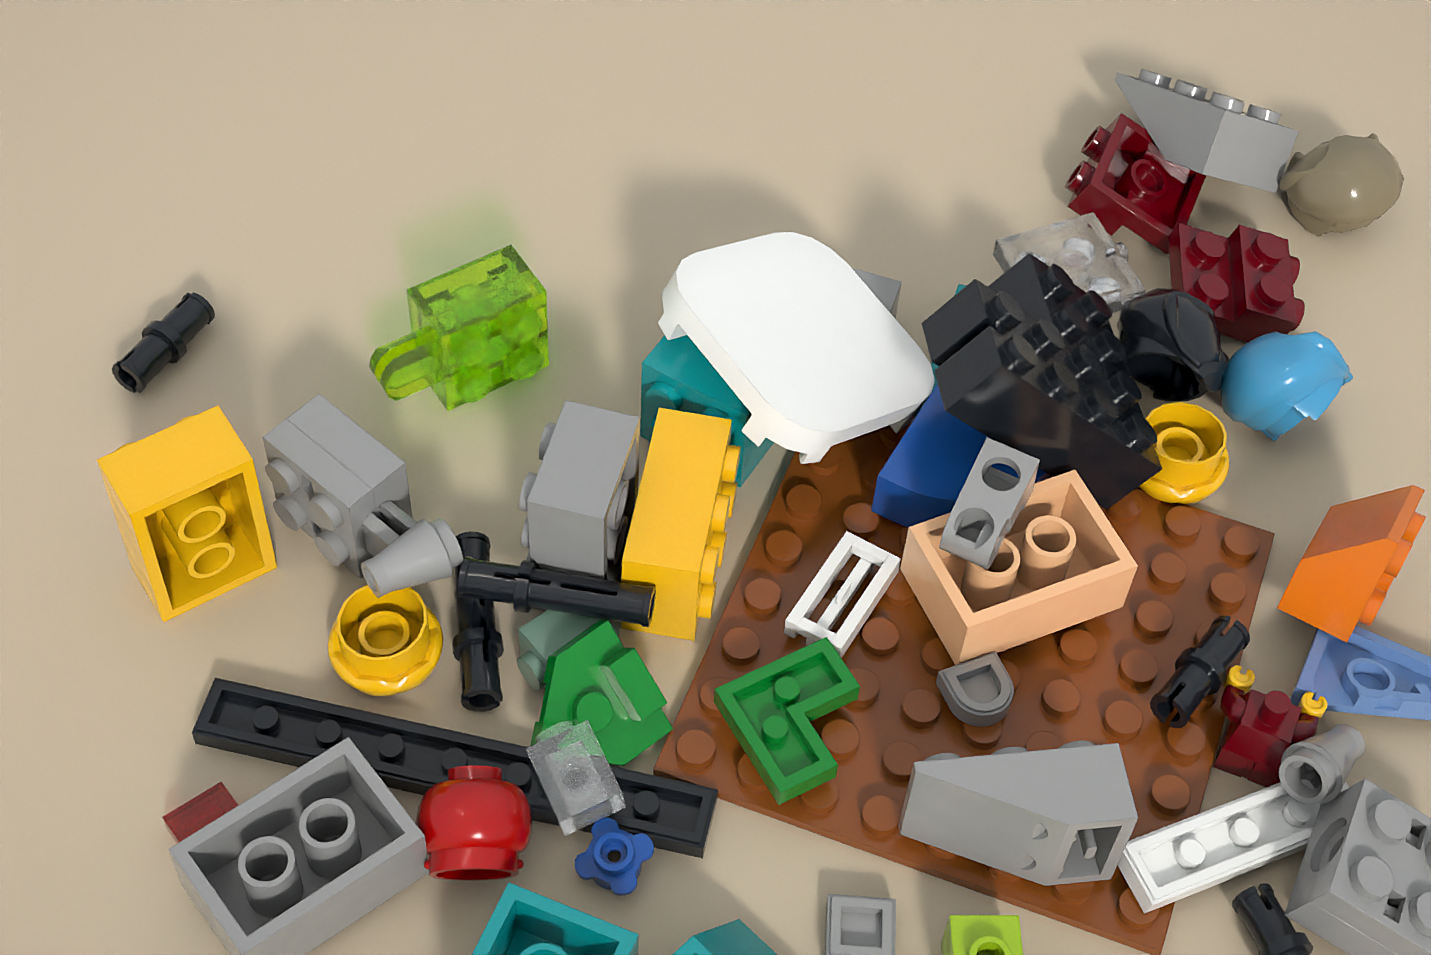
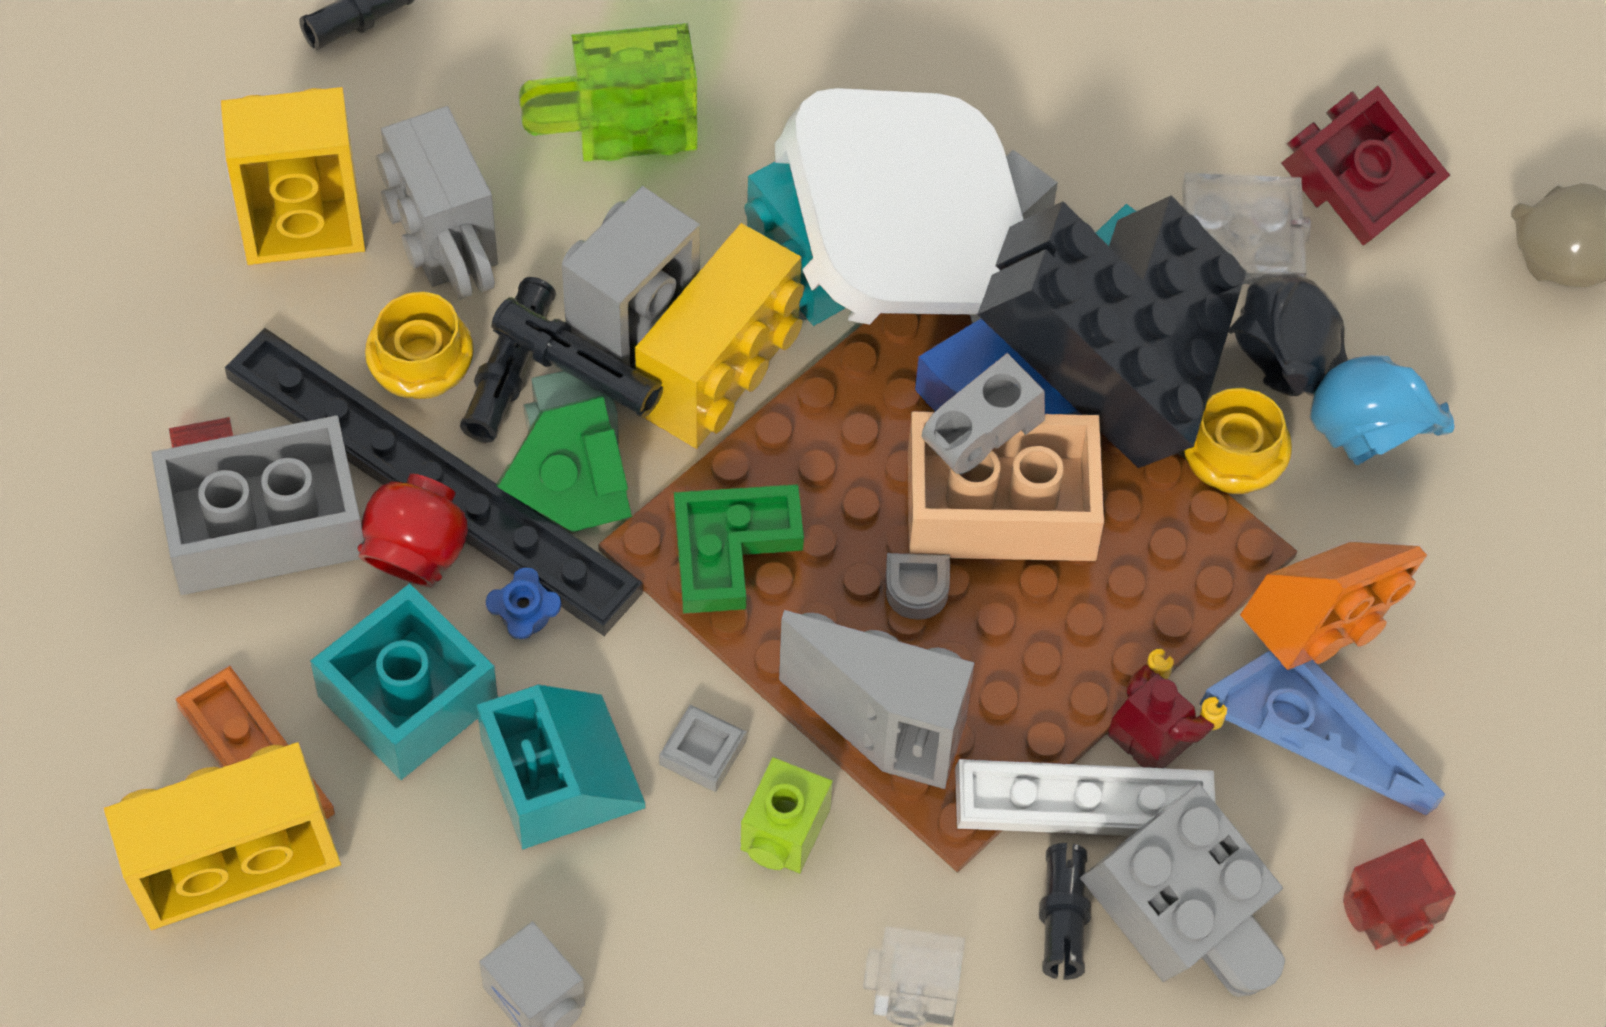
camera: 25 degrees right, 5 degrees up
(415, 558) = (463, 283): light grey cone -> none
(575, 775) = (512, 520): clear brick -> none
(798, 619) = (788, 461): white tile -> none
(1200, 671) = (1129, 643): black pin -> none
(1211, 133) = (1463, 132): light grey slope -> none
(1239, 278) = (1404, 296): dark red plate -> none
(1320, 765) = (1180, 762): light grey cone -> none

